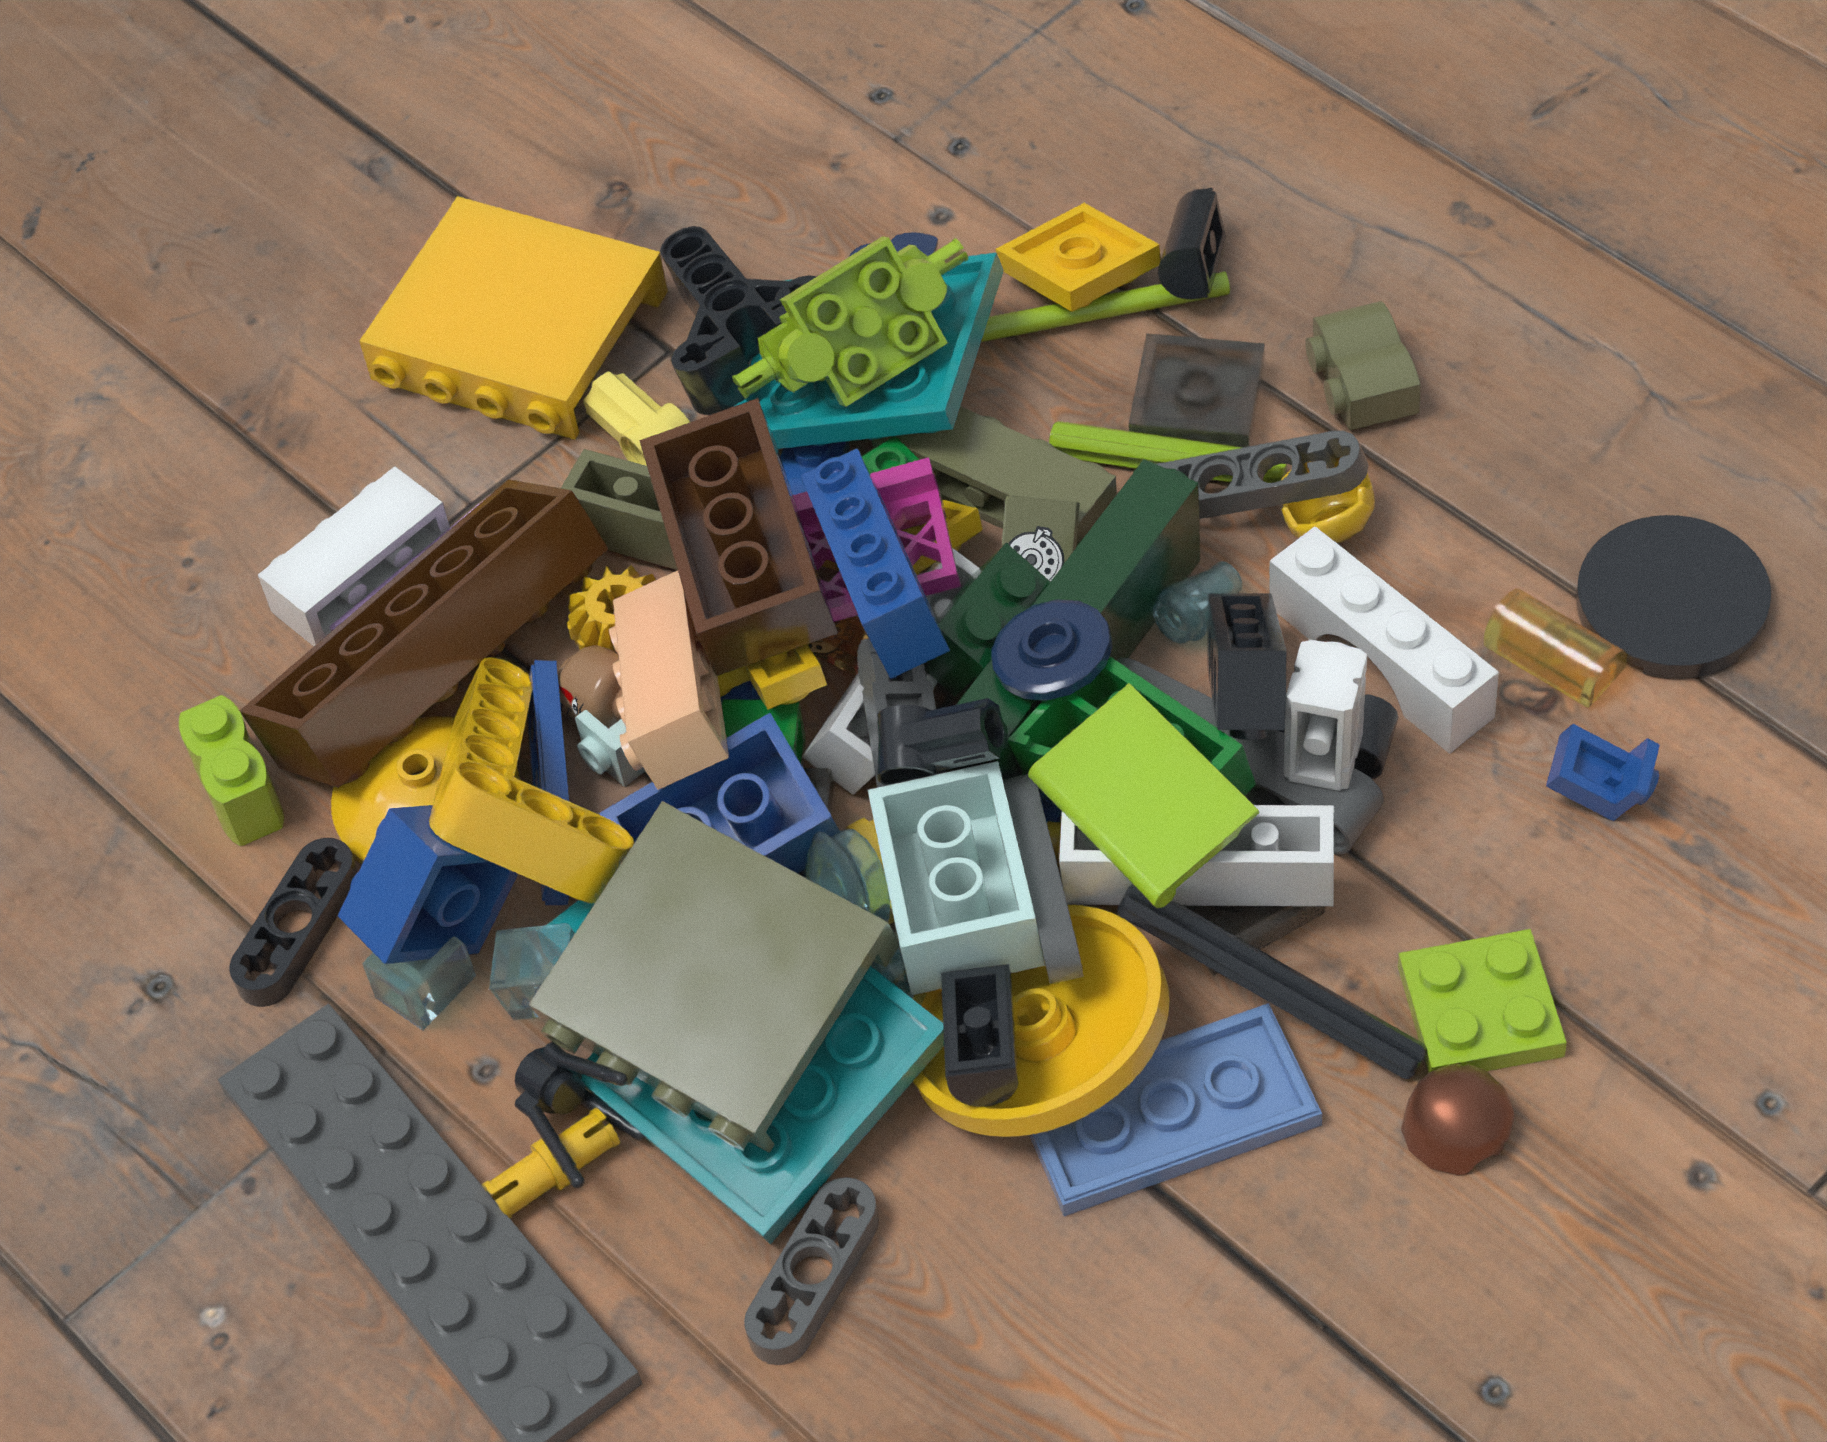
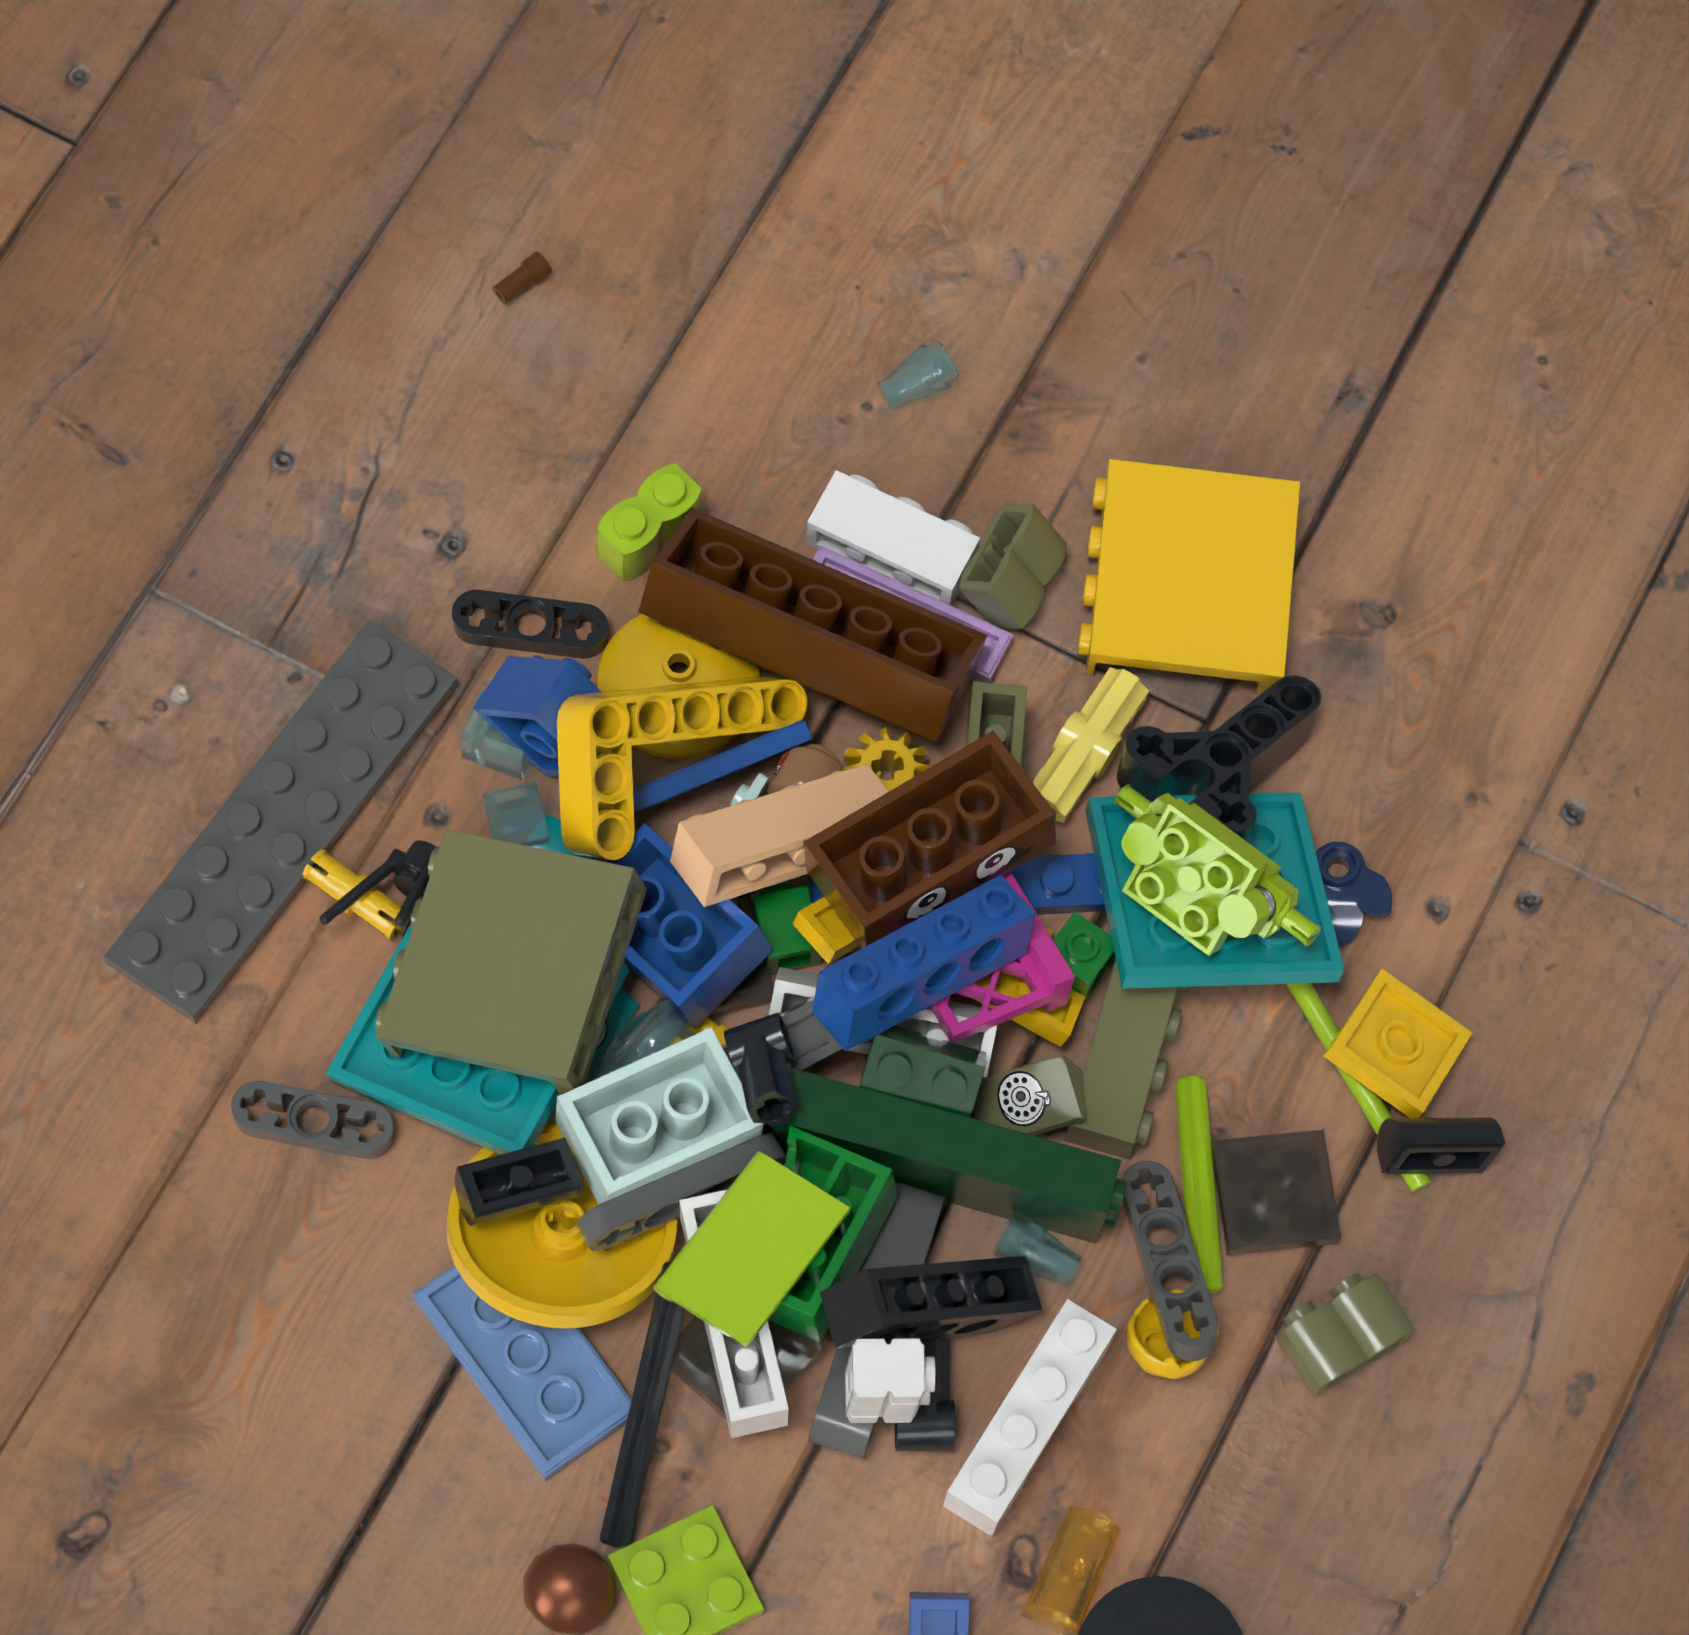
camera: 60 degrees right, 15 degrees up
(179, 494) = (918, 376): none -> clear light blue cone
(436, 450) = (1013, 566): none -> olive brick
(1051, 649) = (879, 1135): dark blue wheel -> none

